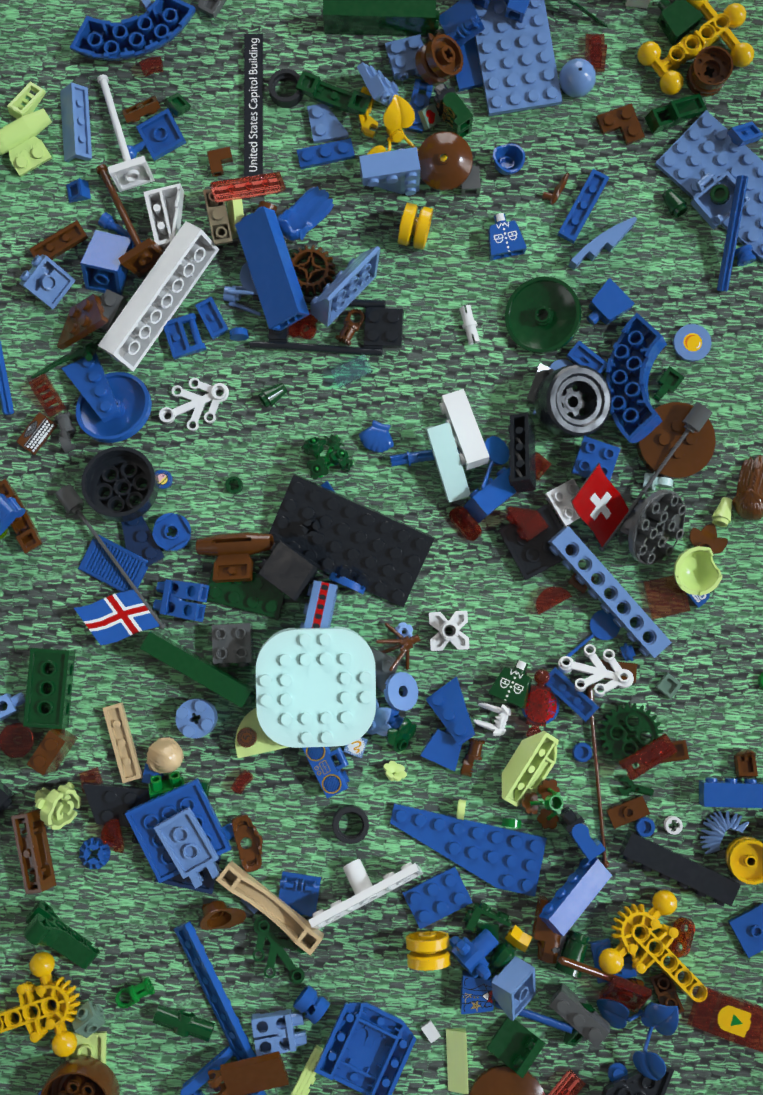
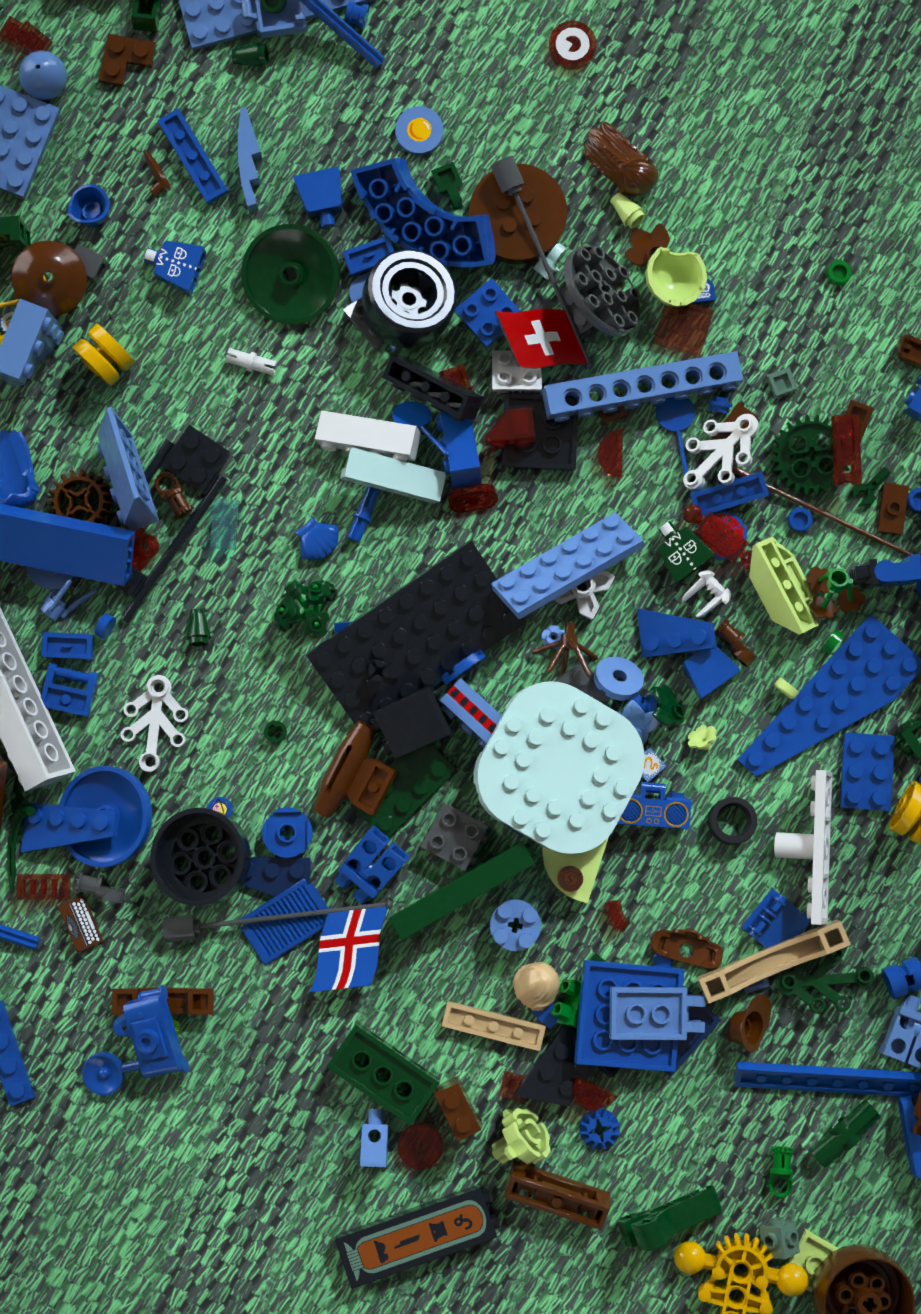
camera: 65 degrees left, 0 degrees up
(456, 612) = (567, 565): none -> medium blue plate

